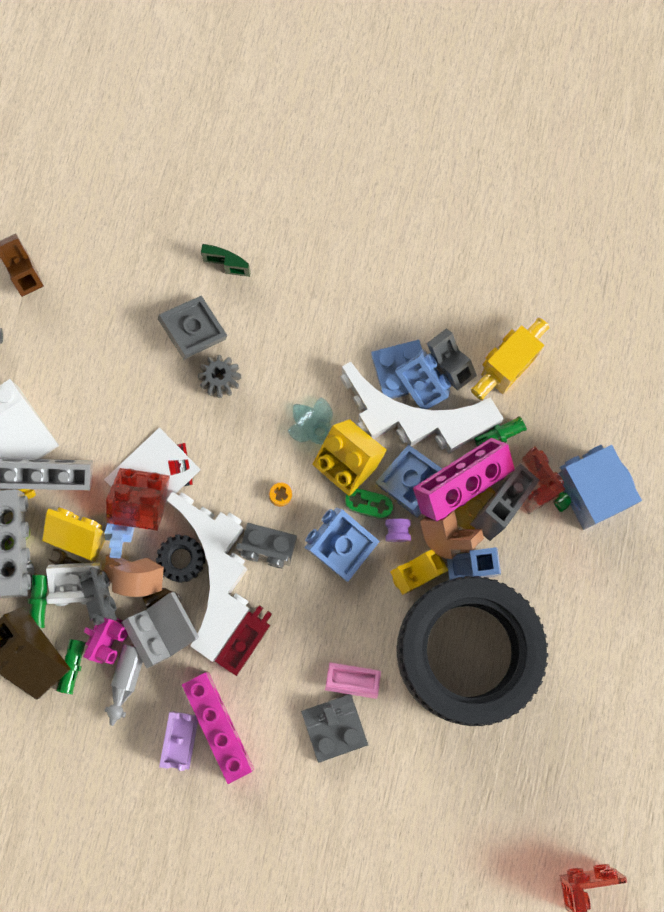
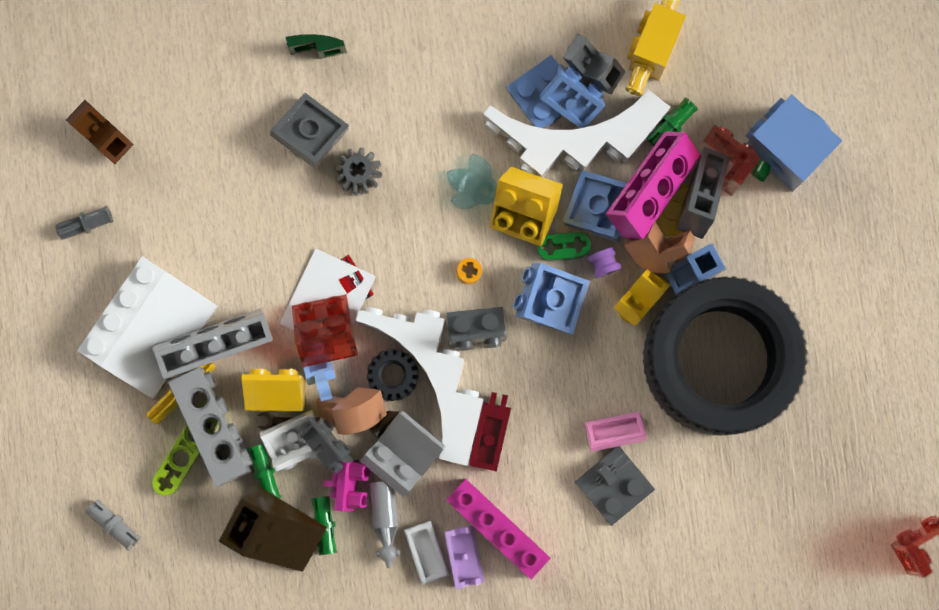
camera: 15 degrees left, 5 degrees up
(149, 724) = (426, 552): none -> white tile

